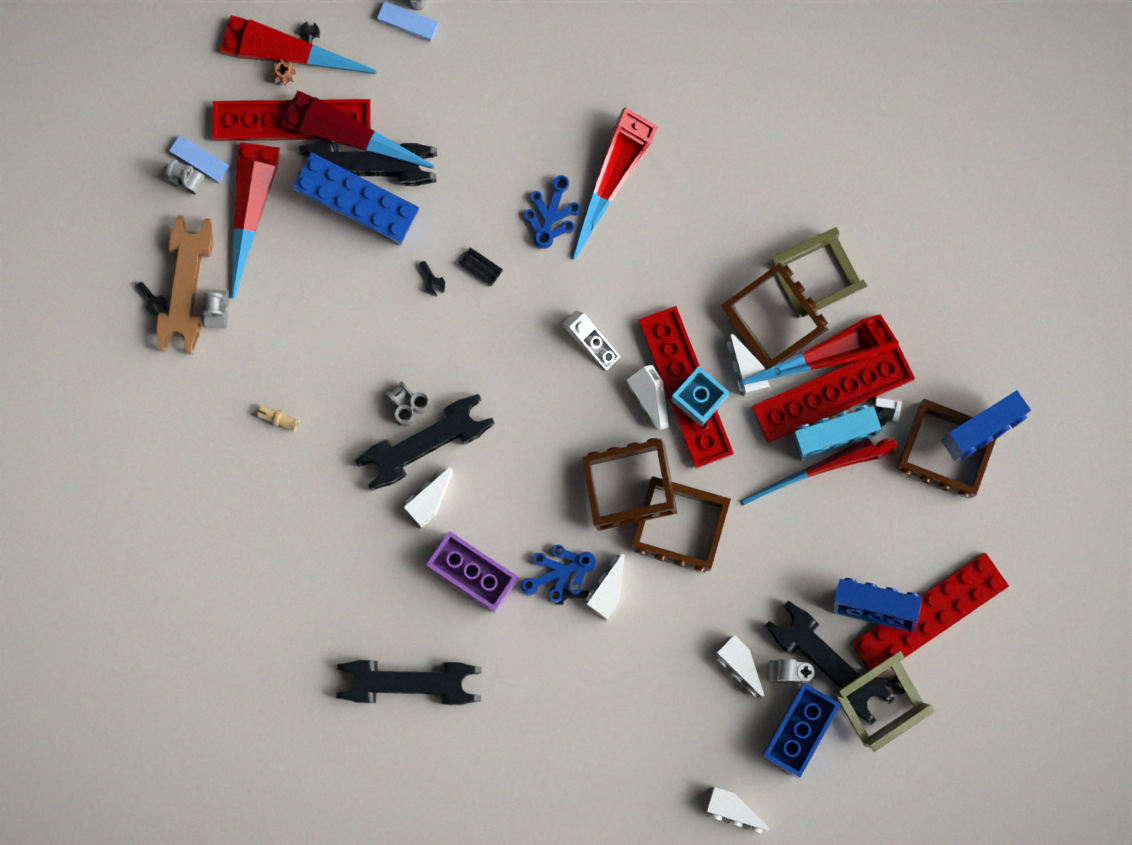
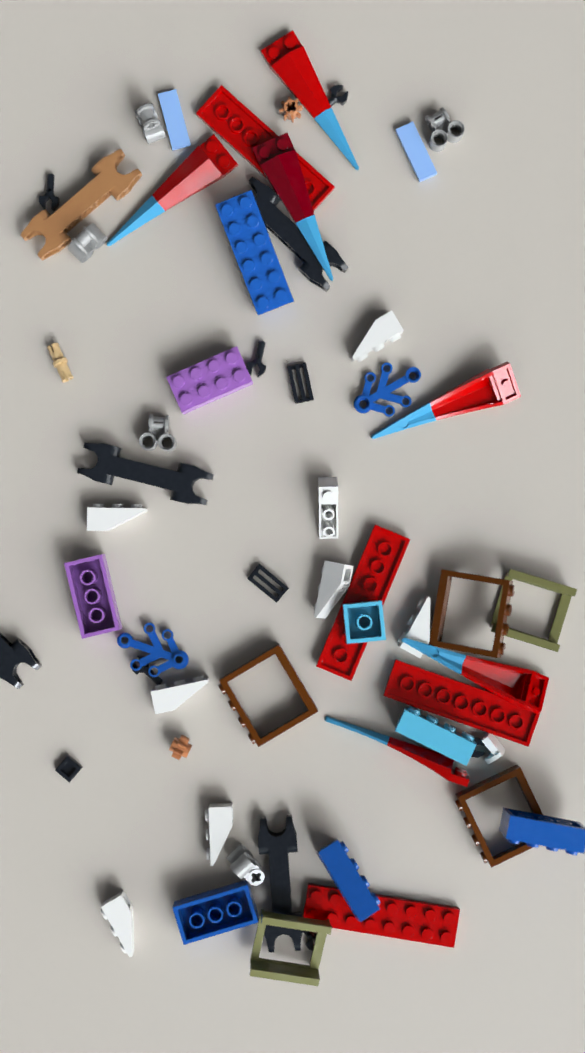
camera: 40 degrees right, 10 degrees up
(409, 326) = (209, 380): none -> medium lavender brick
(507, 170) = (382, 330): none -> white slope
(578, 729) = (68, 768): none -> black tile
(581, 433) = (255, 573): none -> black tile
(639, 514) = (282, 613): reddish brown window -> none
(651, 628) = (180, 747): none -> nougat gear

